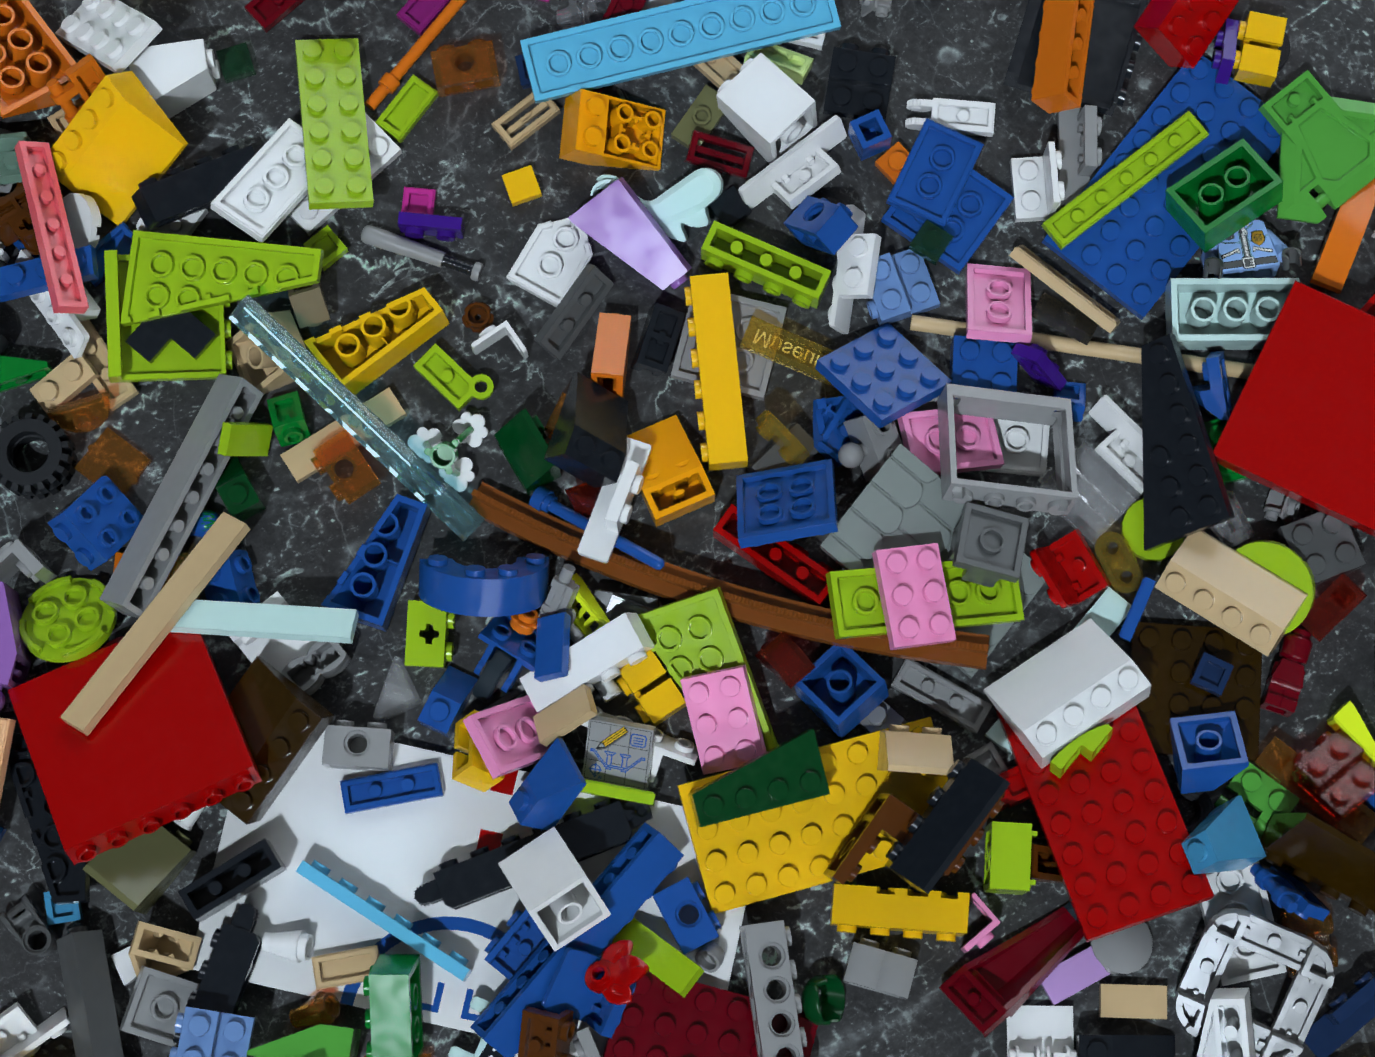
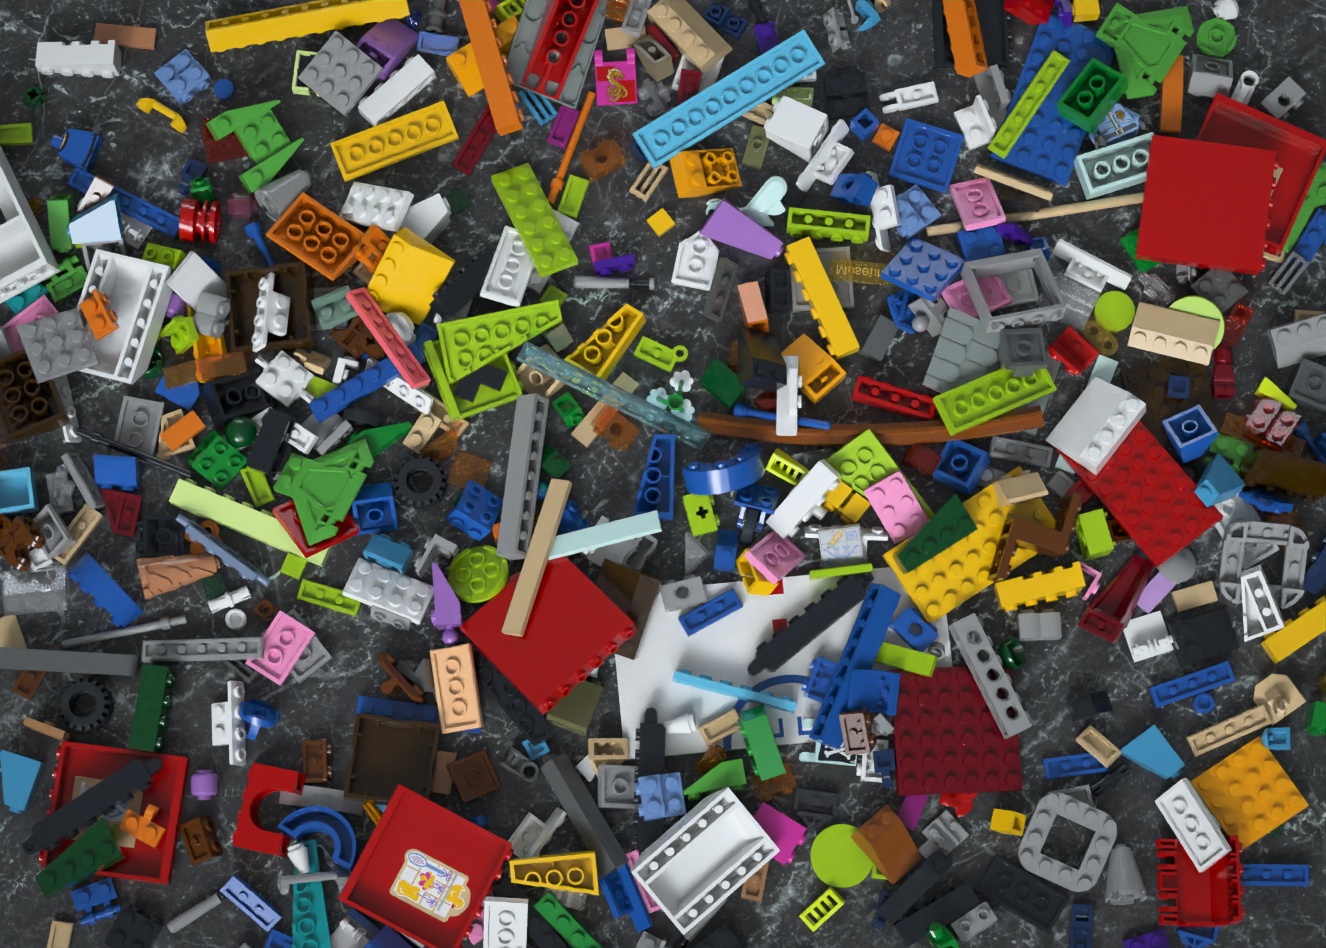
camera: 20 degrees left, 0 degrees up
(232, 880) = (635, 696): black brick -> none
(245, 439) = (548, 430): lime tile -> none
(474, 309) = (662, 306): reddish brown plate -> none
(493, 334) = (675, 318): white bracket -> none
(524, 623) = (758, 487): orange plate -> none
(548, 789) = (808, 580): blue slope -> none
(552, 647) = (780, 495): blue tile -> none
(554, 889) = (833, 637): white slope -> none
(562, 598) = (773, 473): light grey piece -> none
(565, 715) = (801, 534): tan tile -> none
(620, 972) = (889, 673): red plate -> none
(693, 147) = (759, 166): dark red tile -> none
(786, 503) = (893, 364): blue plate -> none
(790, 447) = (870, 323): clear yellow plate -> none
(914, 596) = (989, 395): bright pink plate -> none
(931, 242) = (924, 179): clear green plate -> none
(935, 173) = (912, 136): blue tile -> none
(946, 824) = (1054, 523): black slope -> none
(1087, 744) = (1118, 452): lime slope -> none
(1137, 609) = (1121, 362): blue tile -> none
(1179, 466) = (1120, 270): black wing -> none
(1215, 395) = (1125, 218): blue slope -> none

